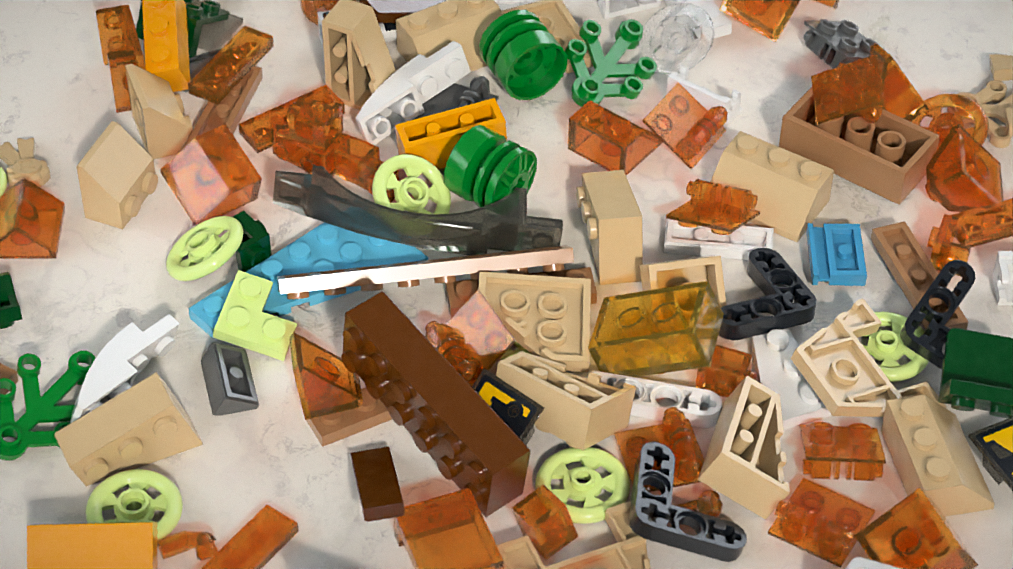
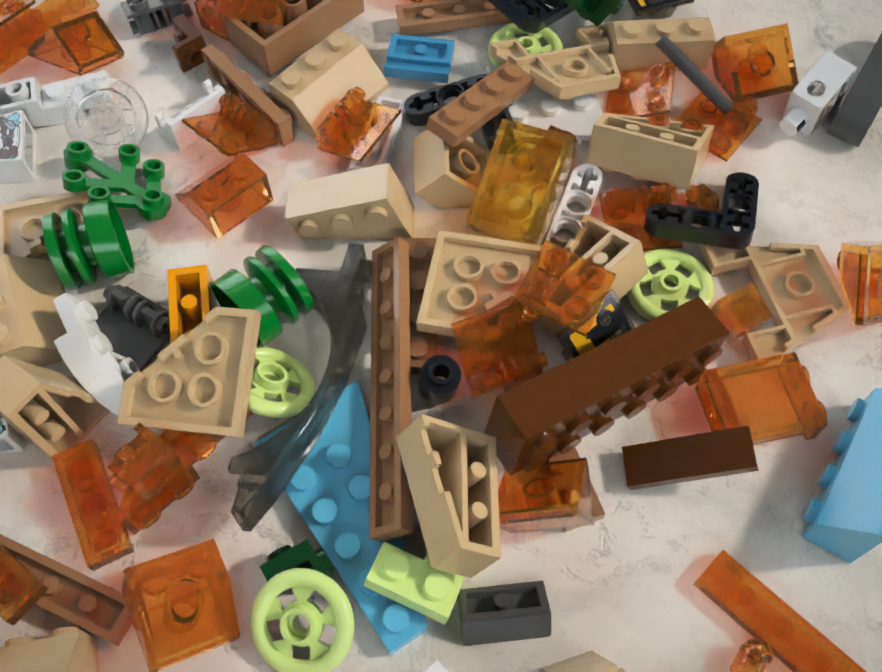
camera: 80 degrees left, 15 degrees up
(308, 304) = (453, 493): none -> tan wedge
(389, 134) = (198, 379): none -> tan plate
(430, 301) = (437, 390): none -> black brick
(523, 353) = (563, 289): none -> clear orange hinge
(750, 119) = (240, 83): none -> medium nougat plate
(756, 287) = (479, 103): none -> medium nougat plate
(794, 80) = (188, 43): none -> reddish brown bracket
(870, 477) = (695, 75): none -> dark grey bar

